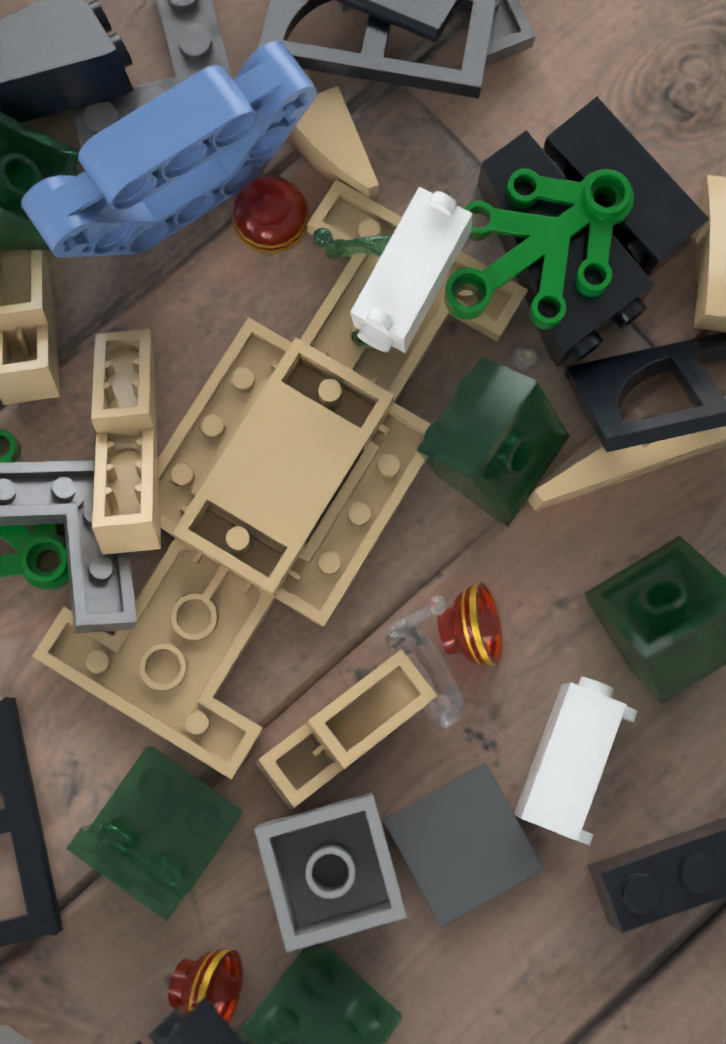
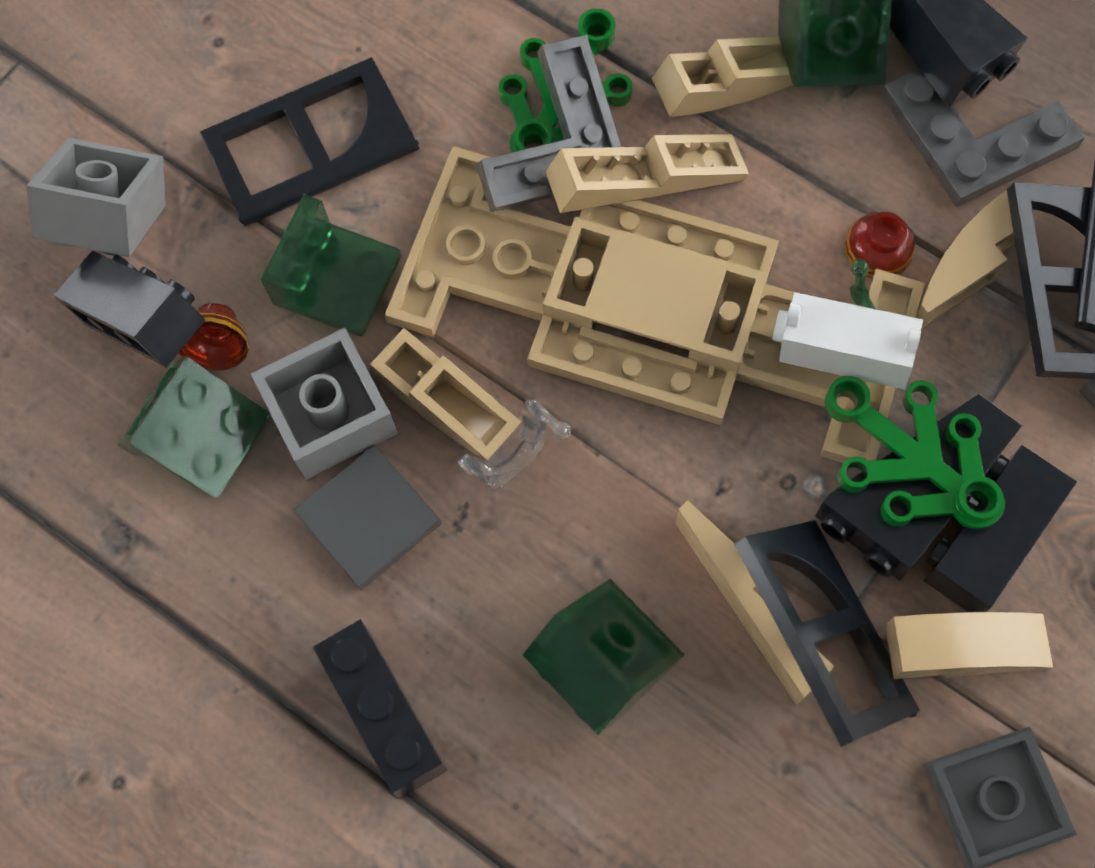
camera: 85 degrees right, 10 degrees down
(173, 158) = (891, 137): medium blue piece -> none
(473, 626) = (556, 483): clear red piece -> none
(494, 439) = (724, 461): clear green slope -> none
(572, 758) = (457, 588): white brick -> none

